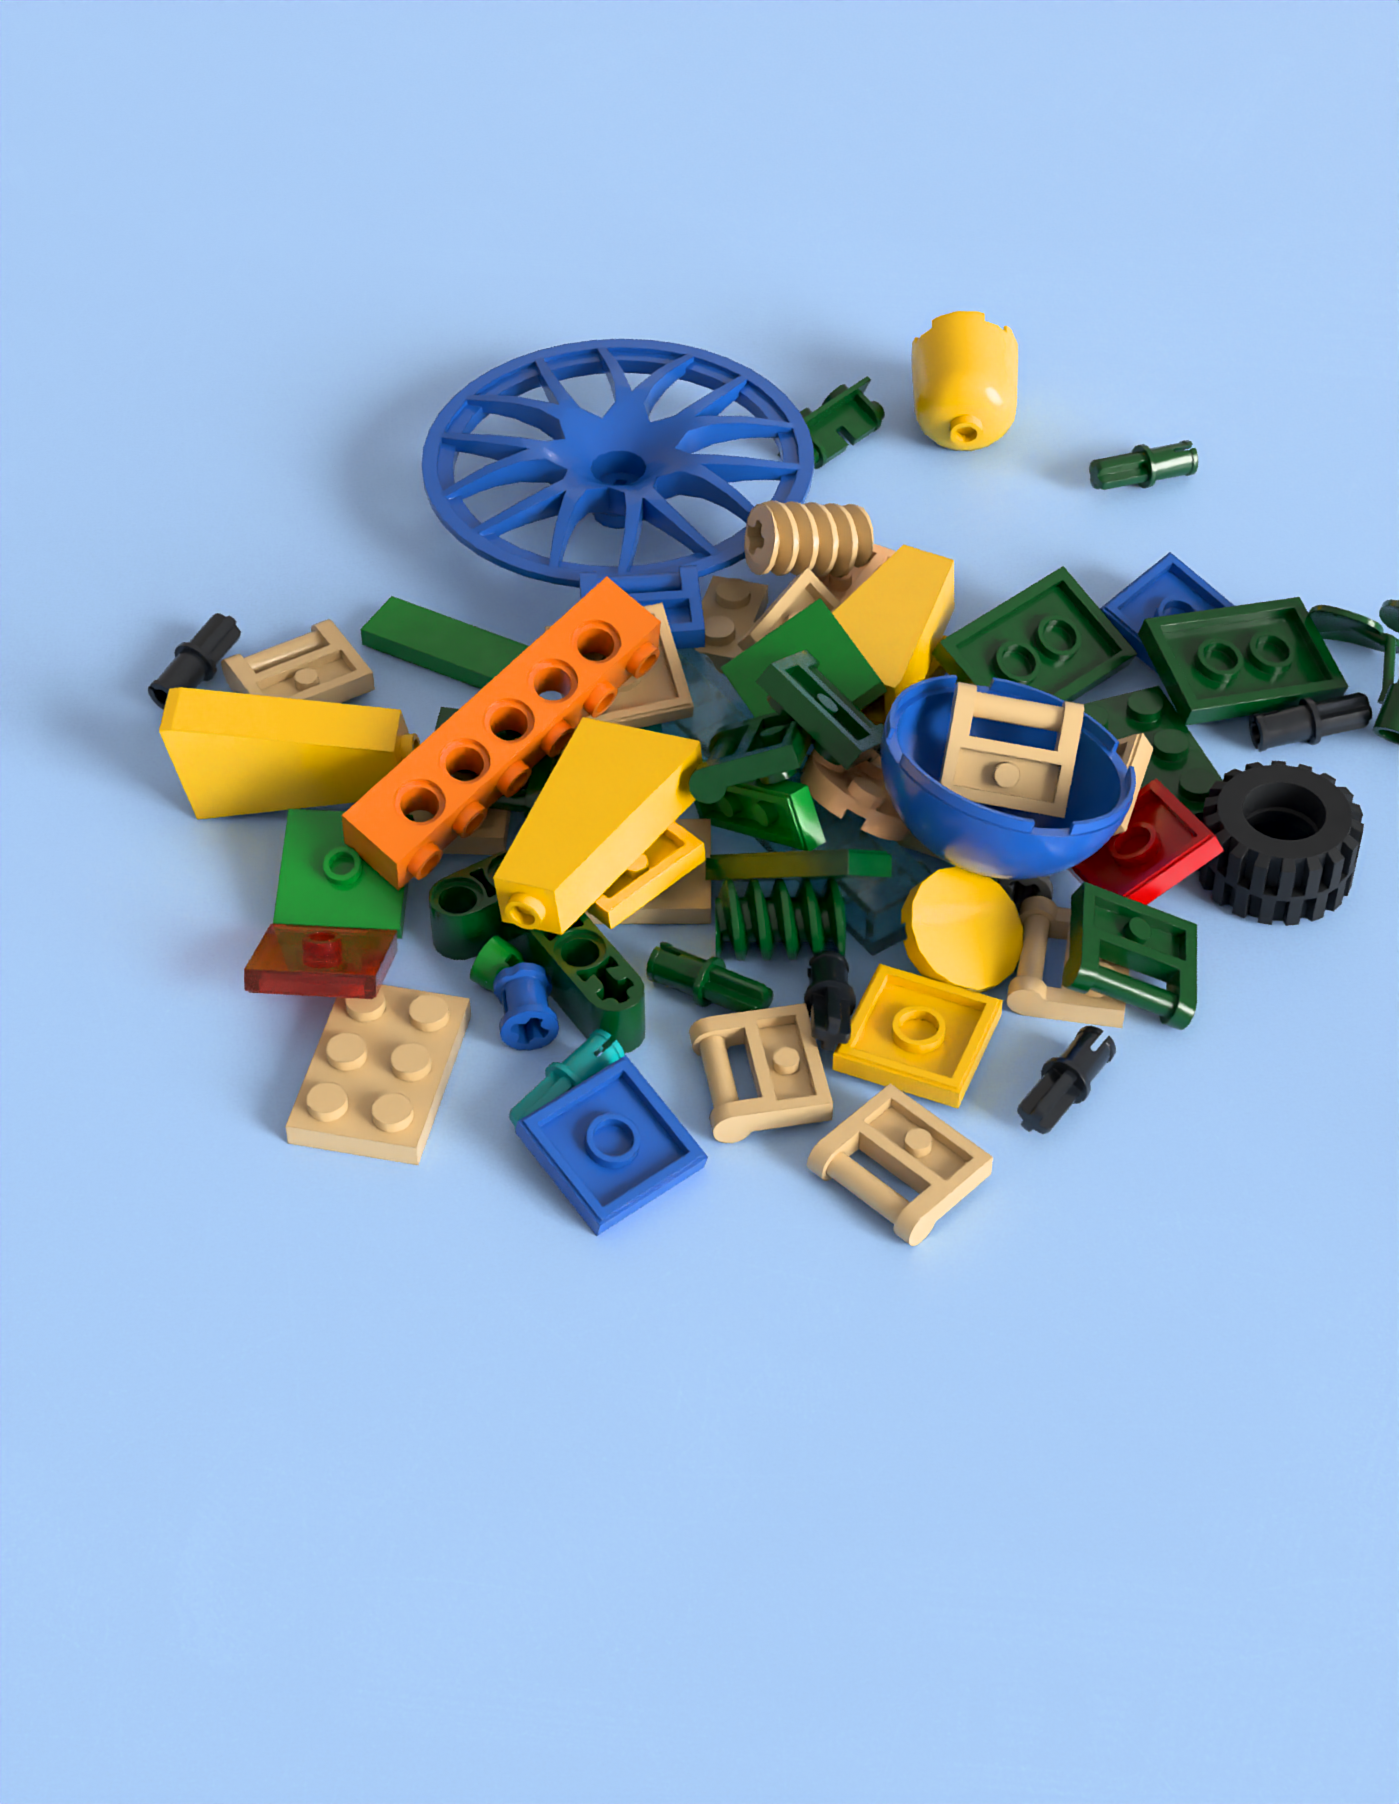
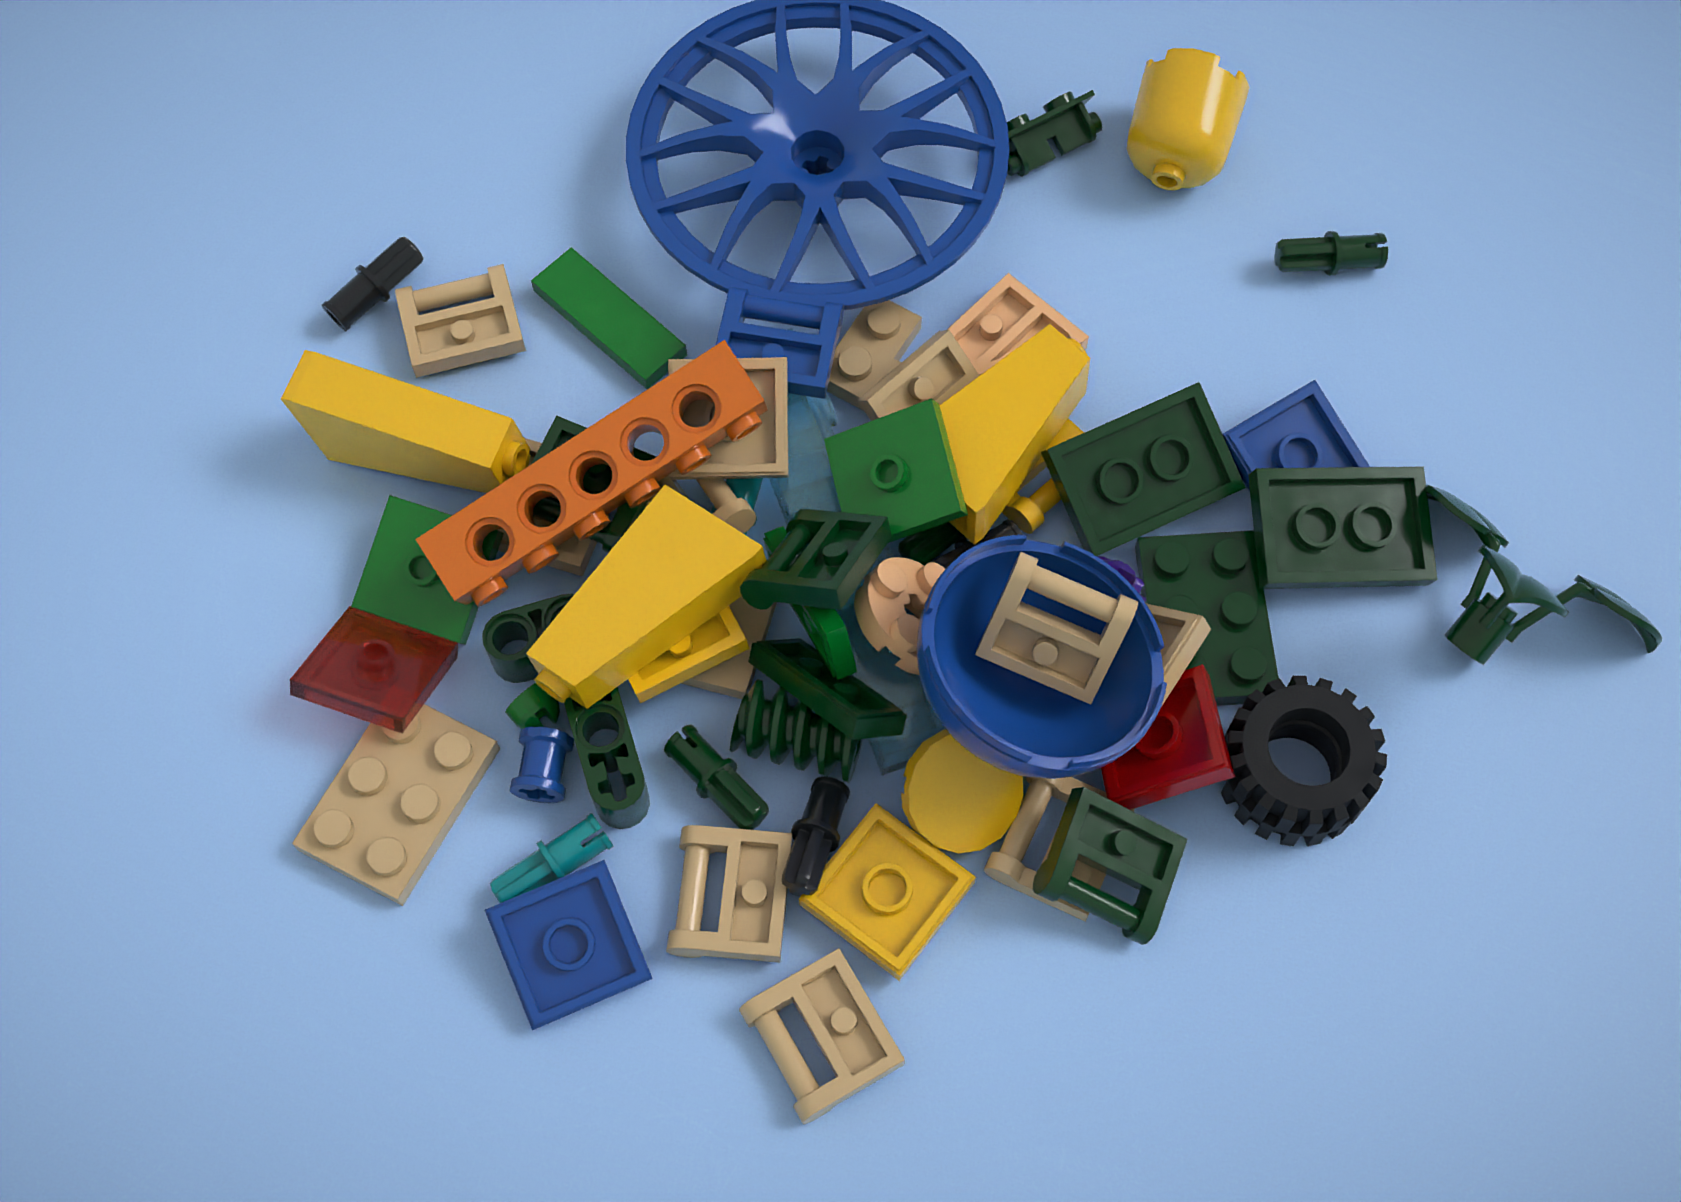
camera: 15 degrees right, 20 degrees up
(806, 696) = (888, 540): dark green plate -> none
(807, 536) = (961, 293): tan piece -> none
(1065, 1080) = (1005, 981): black axle -> none
(1309, 721) = (1385, 609): black axle -> none

